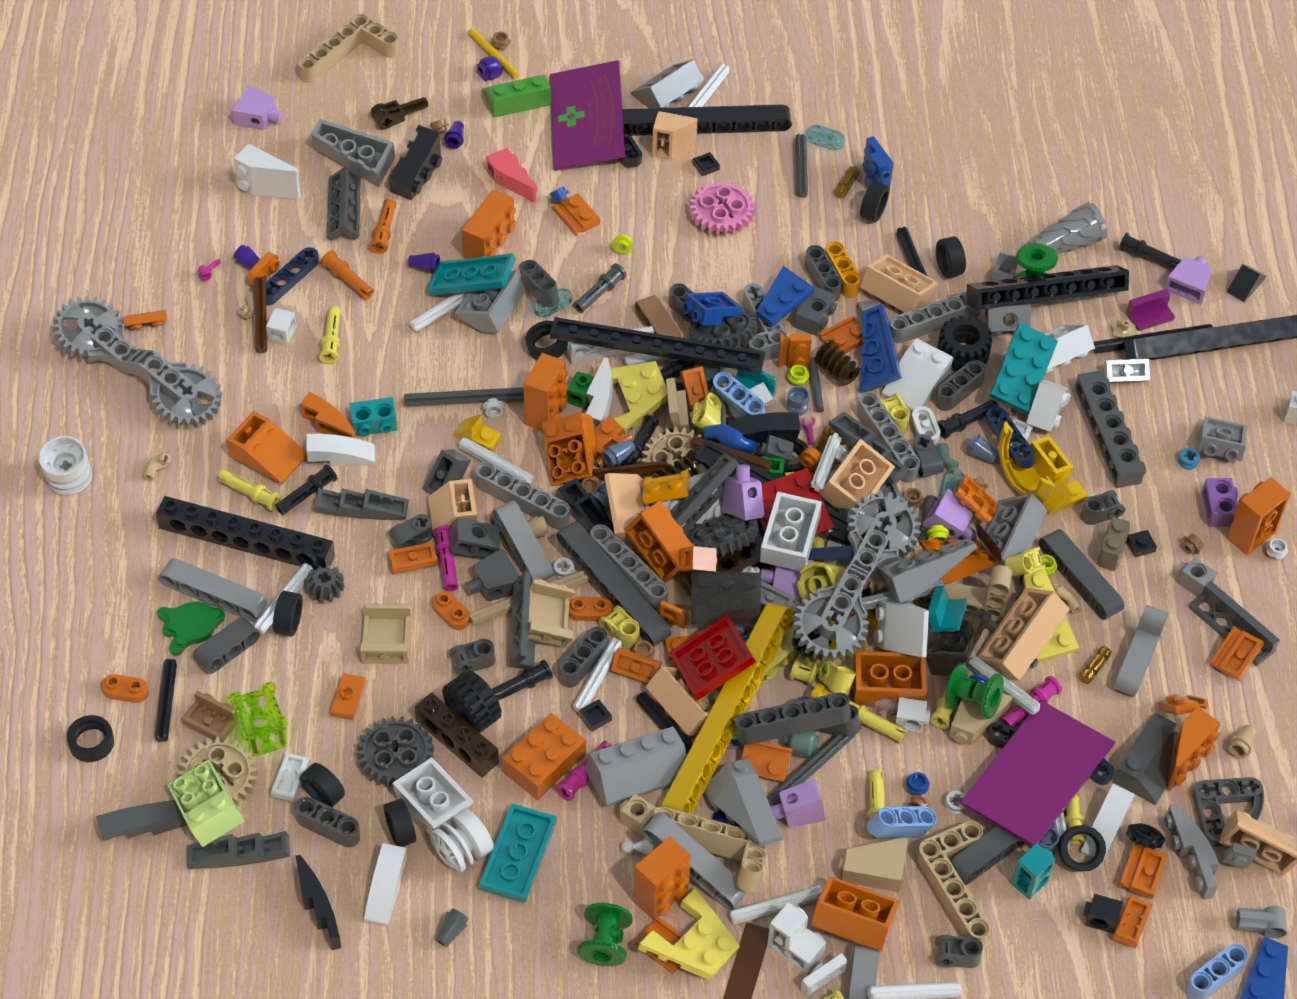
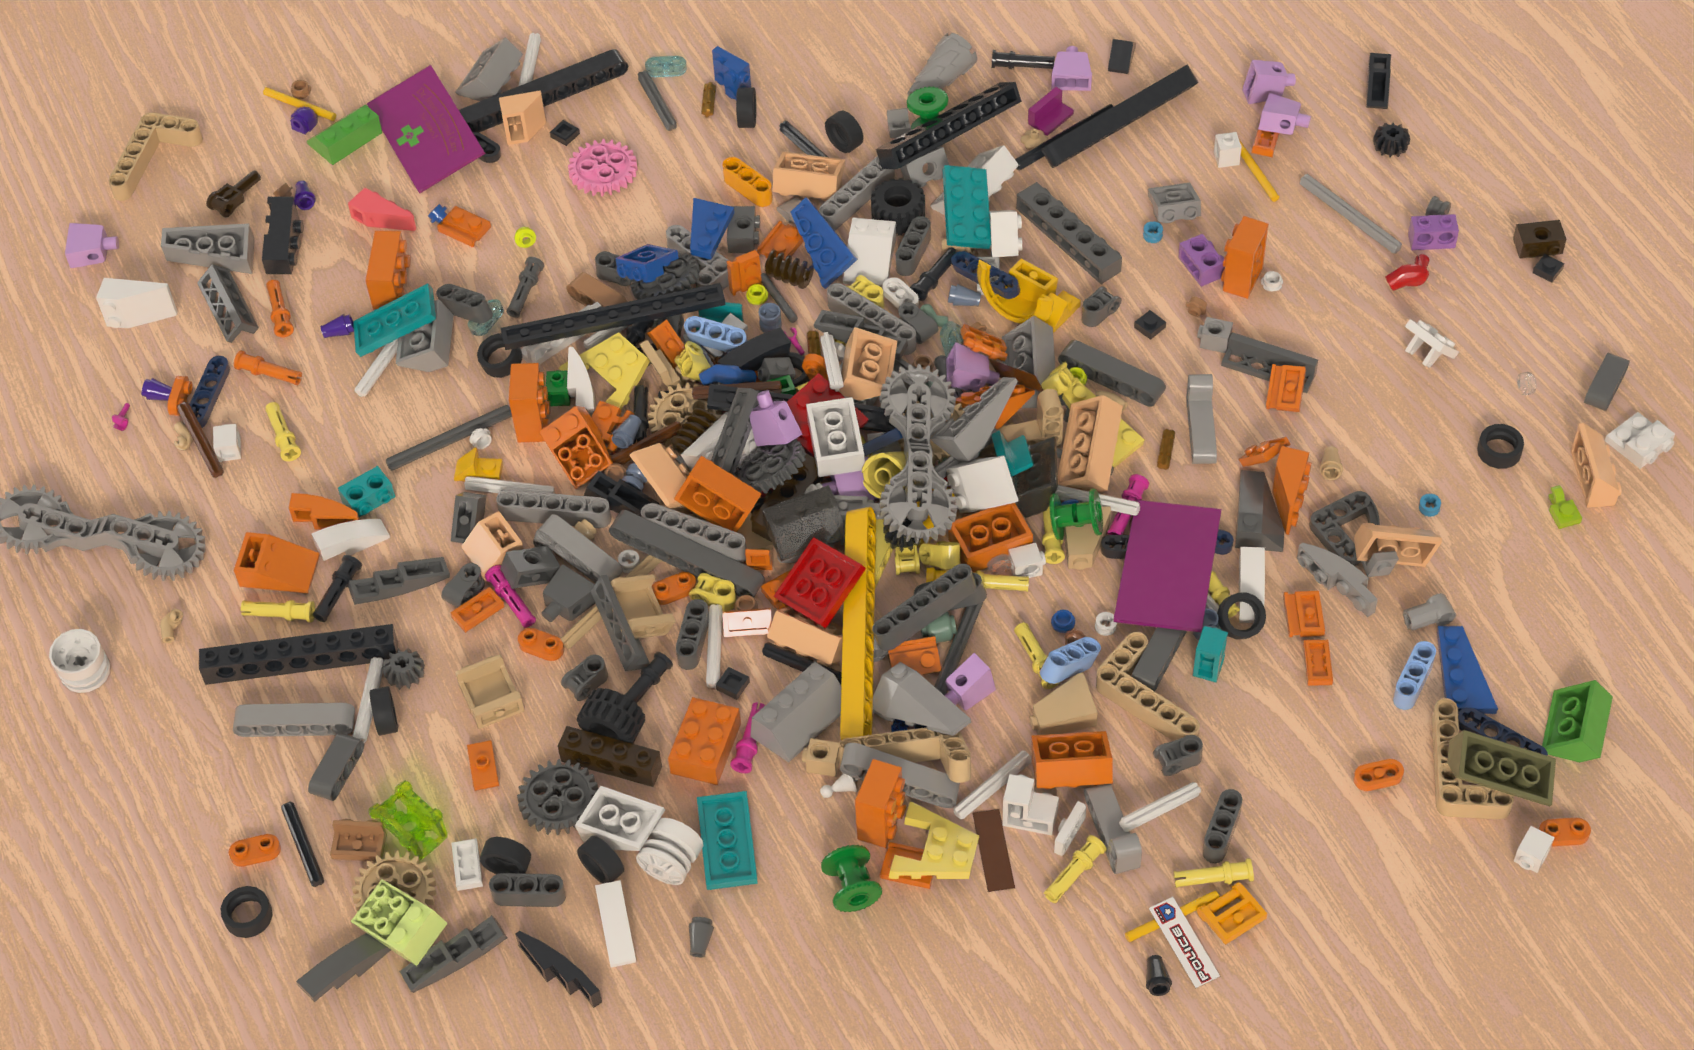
camera: 20 degrees left, 0 degrees up
(136, 320) = (90, 484): orange plate -> none
(189, 624) = (287, 762): green tile -> none
(666, 487) = (695, 443): light orange plate -> none
(698, 559) = (763, 496): brick -> none
(822, 270) = (729, 189): dark grey beam -> none
(938, 532) = (966, 385): neon yellow plate -> none
(1102, 913) = (1289, 666): black brick -> none
(1114, 543) = (1127, 334): dark tan brick -> none
(1127, 370) = (1057, 174): white brick -> none
(1145, 835) = (1290, 581): black gear -> none

